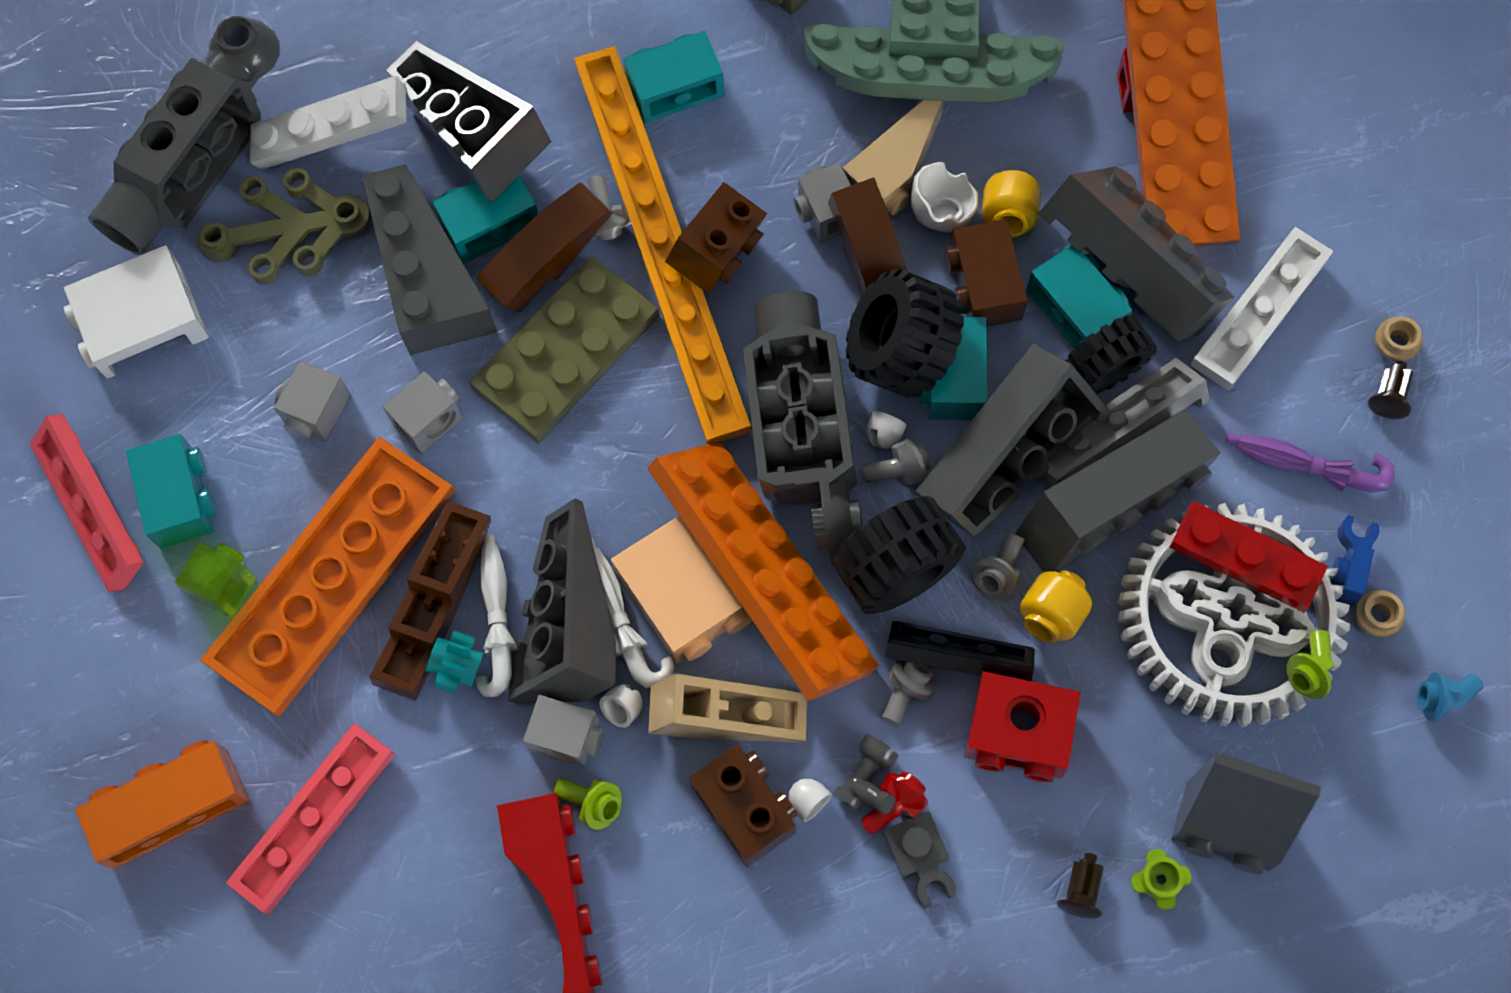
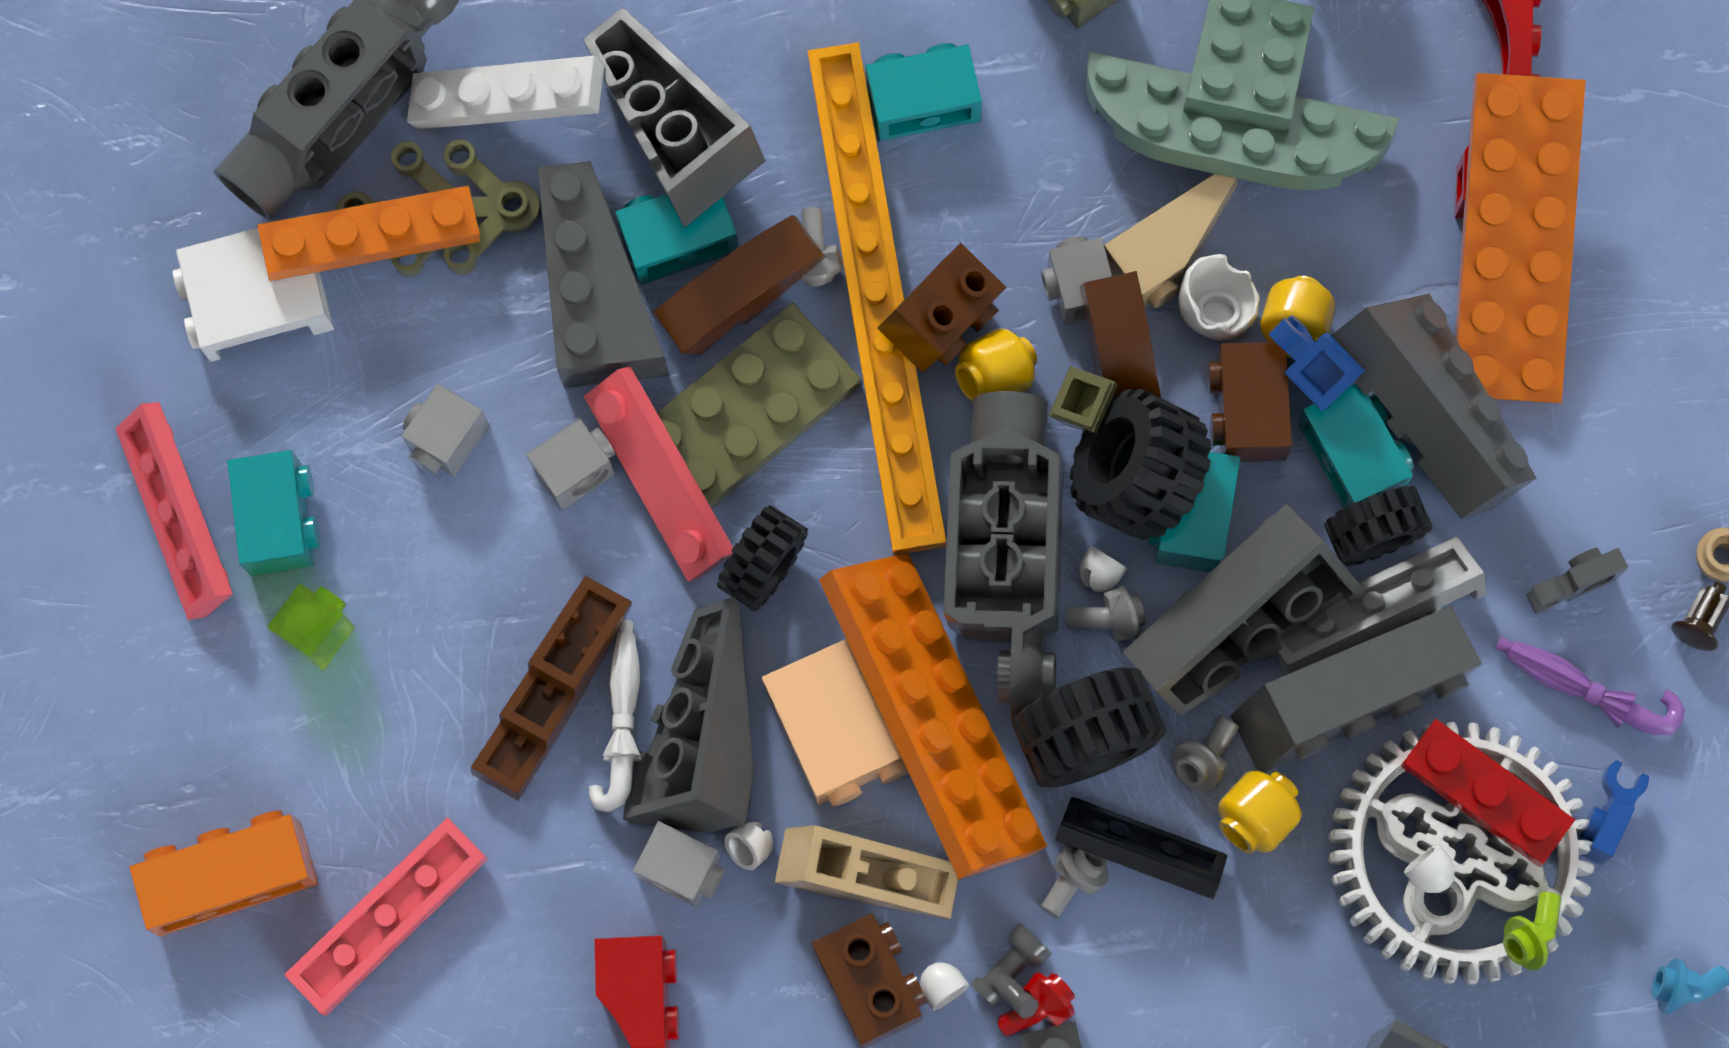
camera: 10 degrees right, 5 degrees up
(225, 249) = (368, 233): none -> orange plate
(328, 576) = (439, 640): orange plate -> none
(454, 662) = (568, 766): teal gear -> none
(499, 407) = (659, 473): none -> coral plate
(596, 461) = (762, 557): none -> black tyre
(599, 803) = (702, 948): lime plate -> none
(627, 639) = (766, 769): white piece -> none
(767, 274) = (996, 364): none -> yellow head
(846, 290) = (1083, 400): none -> olive slope
(999, 744) = (1164, 958): red brick -> none
(1040, 233) = (1321, 367): none -> blue plate
(1214, 628) = (1431, 870): none -> white hinge
(1261, 308) = (1569, 492): white plate -> none
(1290, 370) = (1586, 574): none -> dark grey plate
(1389, 604) = (1644, 868): tan plate -> none

